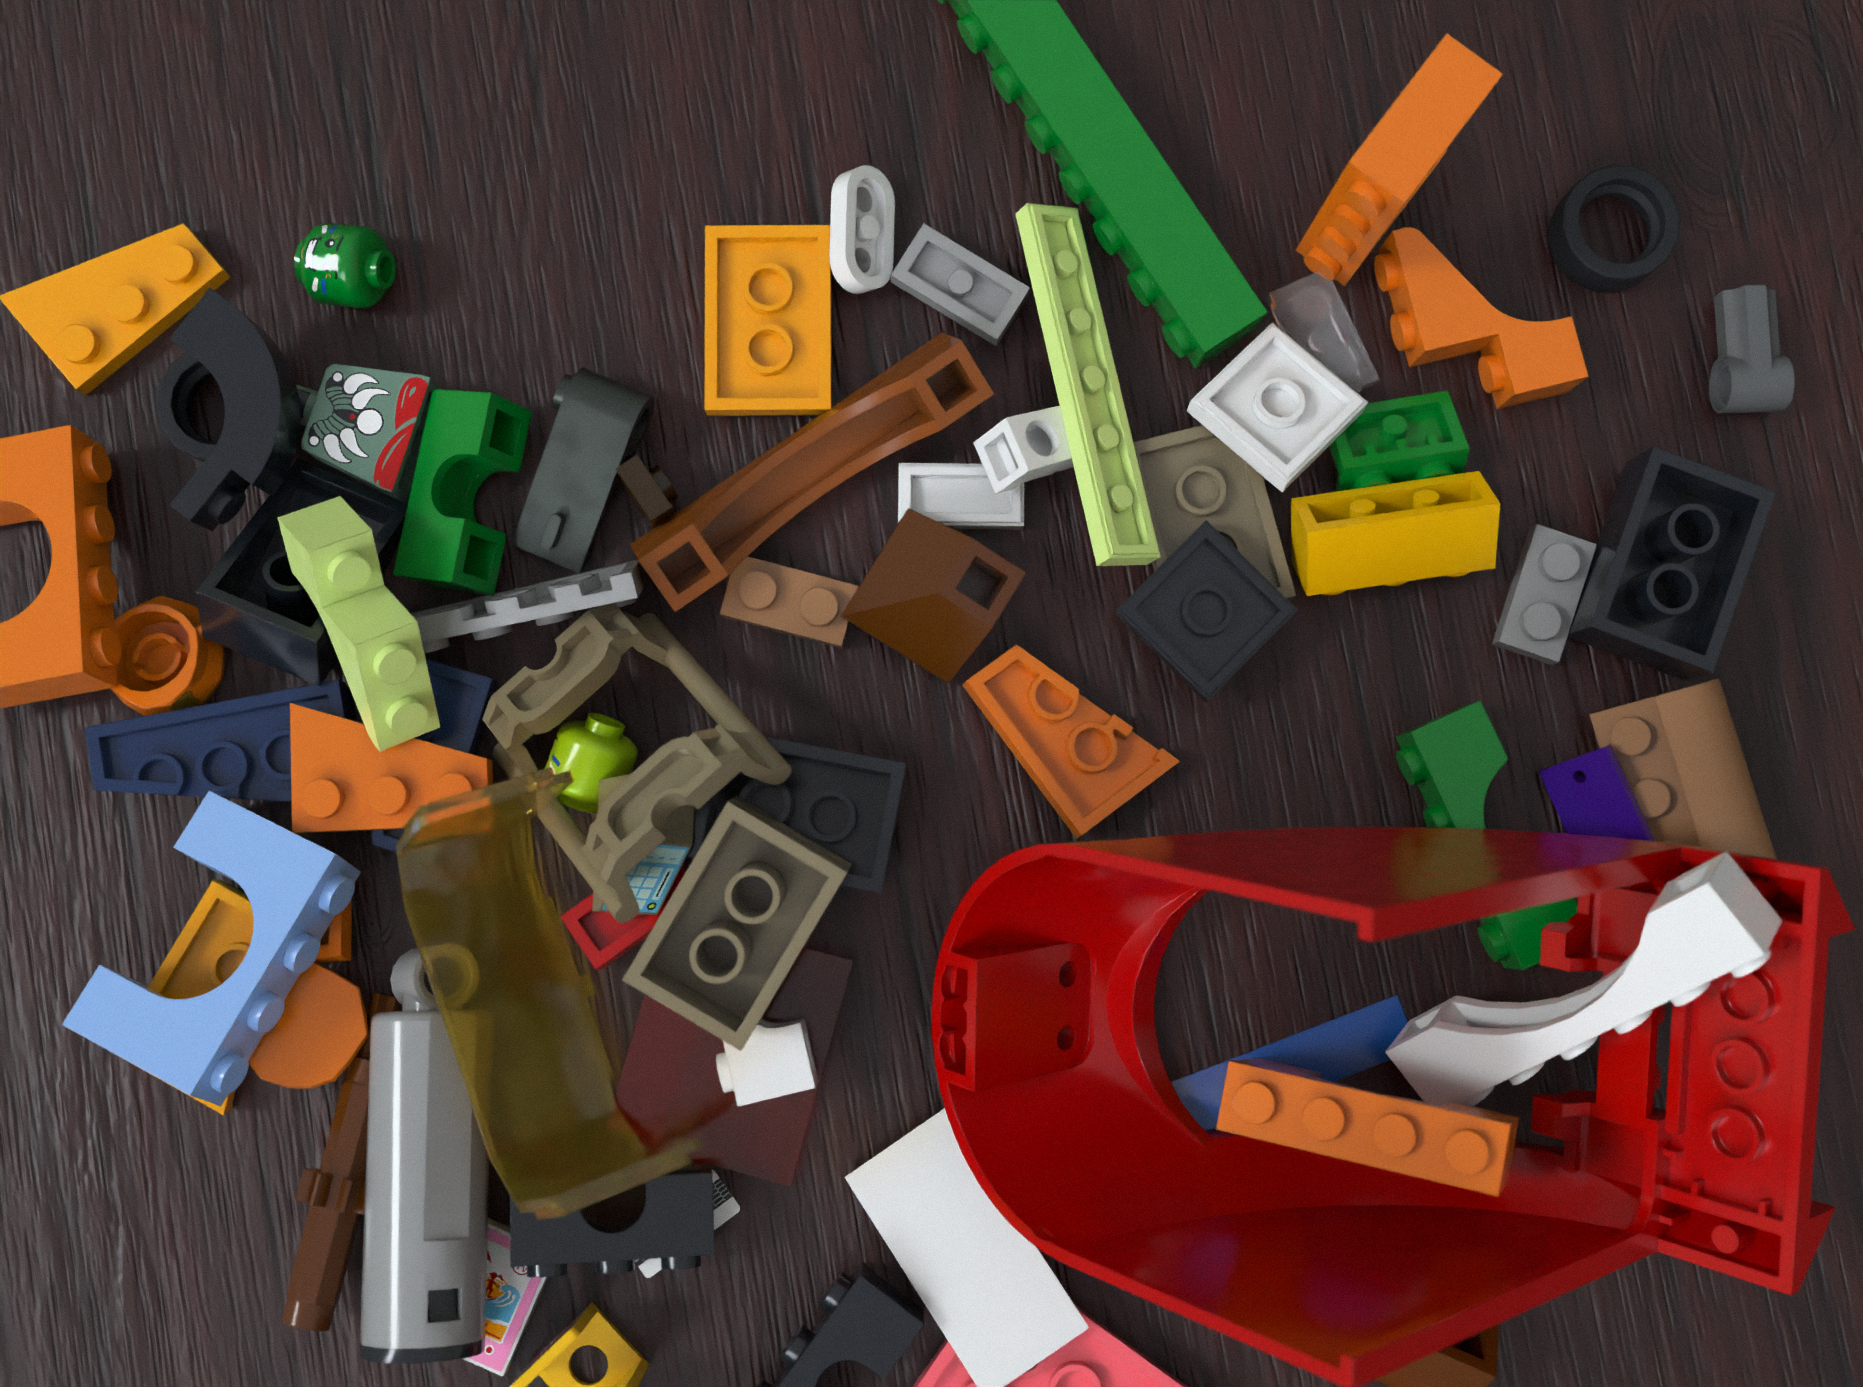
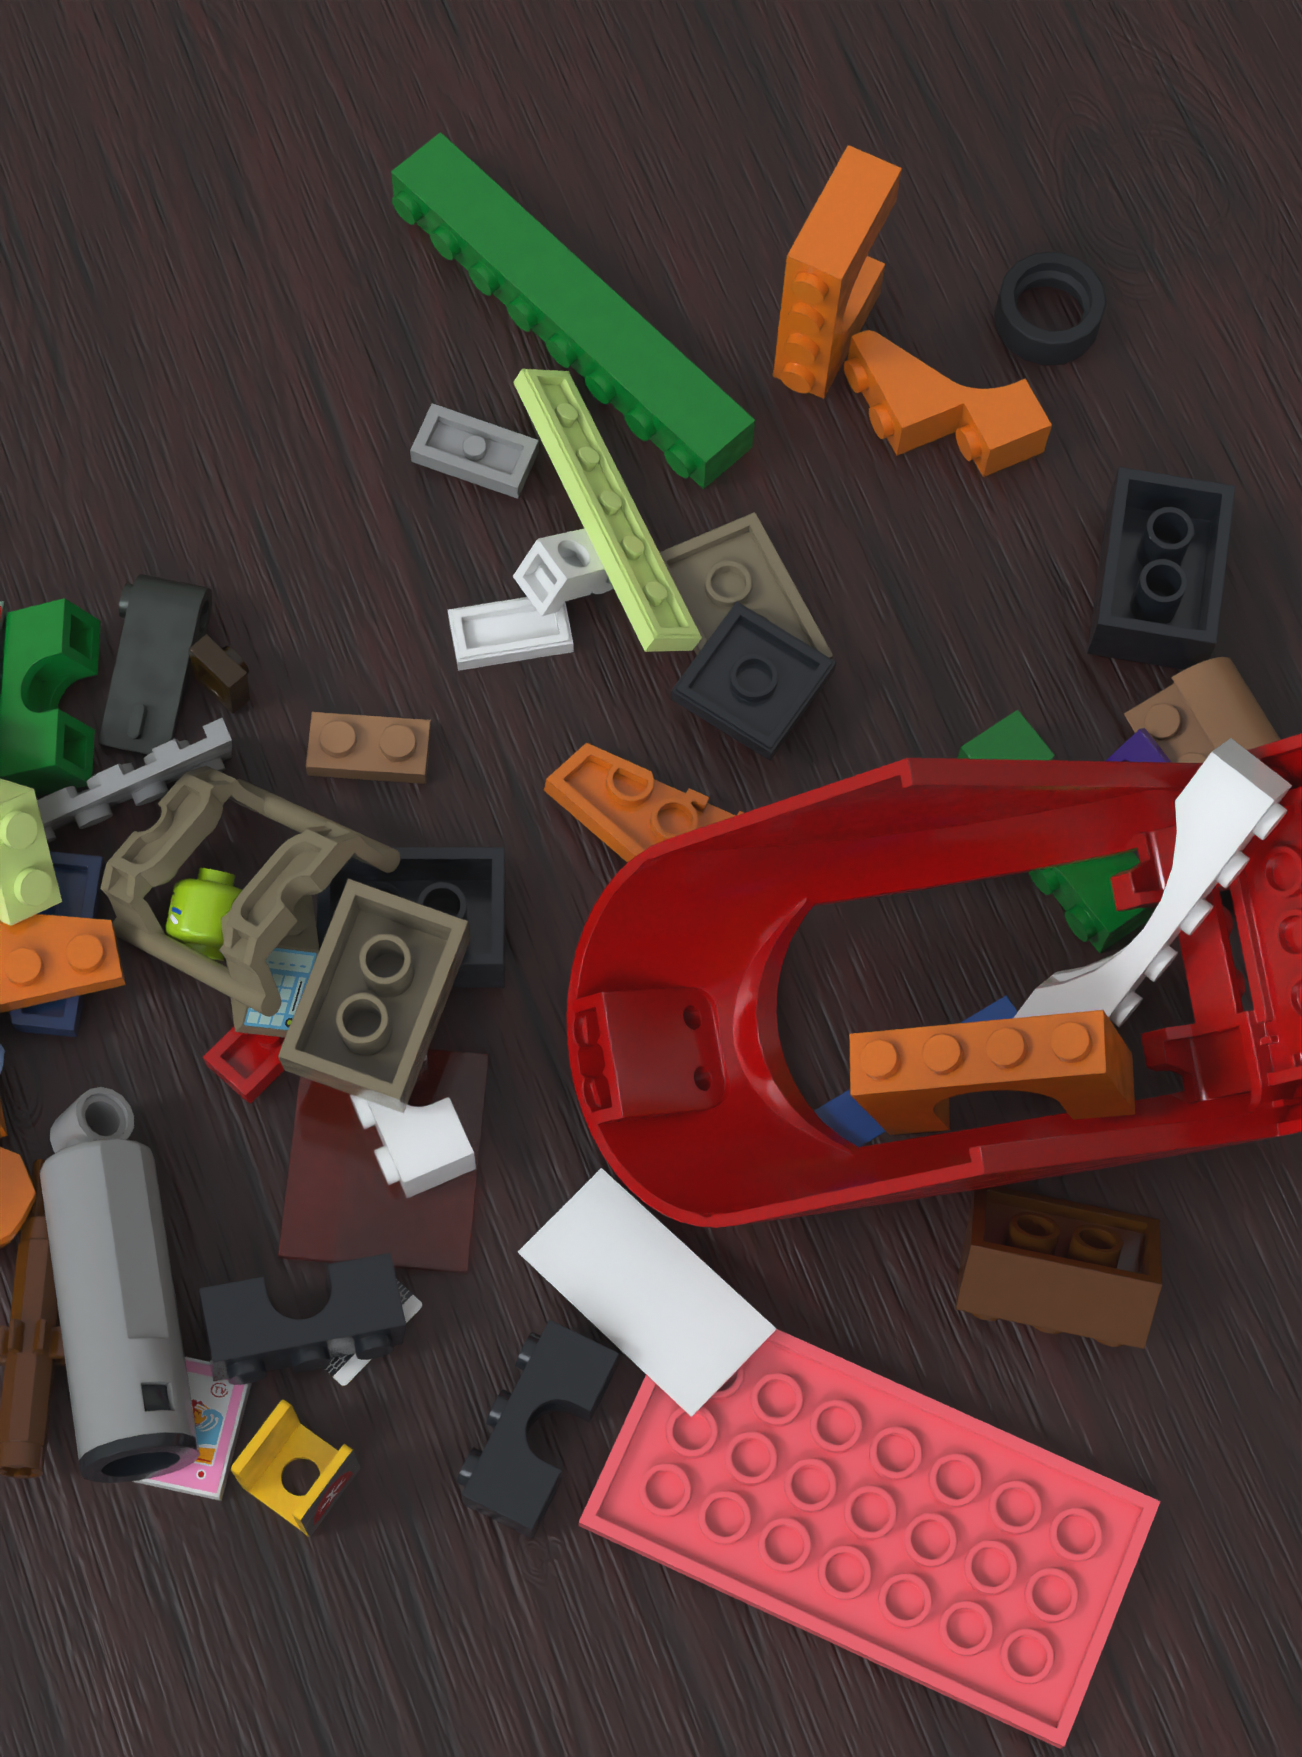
camera: 10 degrees left, 15 degrees down
(518, 1002) = (160, 1103): clear yellow piece -> none
(737, 515) = (367, 621): dark orange arch -> none
(768, 320) = (305, 510): light orange plate -> none
(863, 233) = (376, 419): white plate -> none
(933, 594) = (501, 710): reddish brown slope -> none
(1277, 407) = (781, 498): white plate -> none
(1319, 322) = (812, 443): clear plate -> none
(1394, 533) = (909, 587): yellow brick -> none
(1401, 442) = (898, 521): green bracket -> none
(1544, 594) = (1060, 622): light grey plate -> none
(1749, 364) = (1195, 399): dark grey piece -> none

